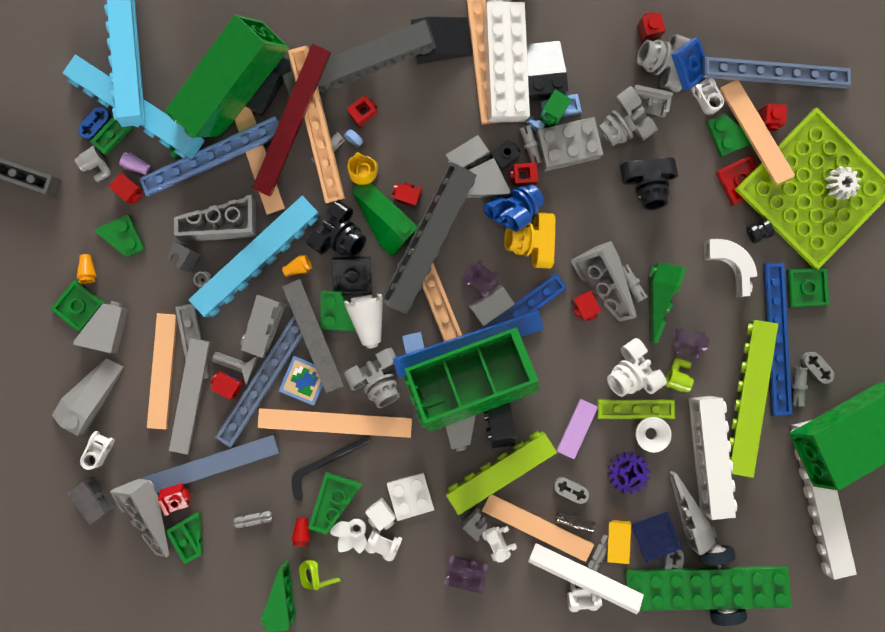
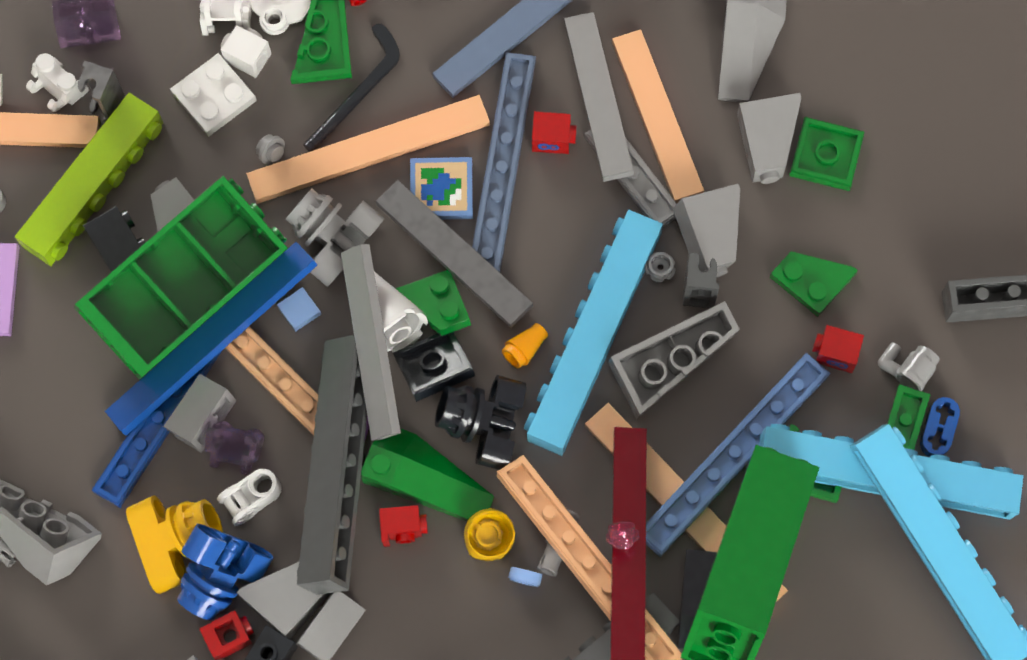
camera: 160 degrees right, 15 degrees down
(86, 271) = (840, 207): light orange cone -> none
(132, 163) = (847, 391): lavender cone -> none
(162, 287) = (711, 226): none -> light grey slope
(233, 363) = (553, 168): light grey piece -> none
(262, 326) = (537, 236): light grey wedge -> none
(290, 126) = (622, 534): none -> clear pink plate
(355, 110) = (530, 613): red brick -> none
(380, 296) = (370, 342): none -> light grey tile
(390, 446) = (270, 149): none -> light grey plate
(484, 246) = (248, 497): none -> white piece
(586, 306) = (51, 472): red brick -> none

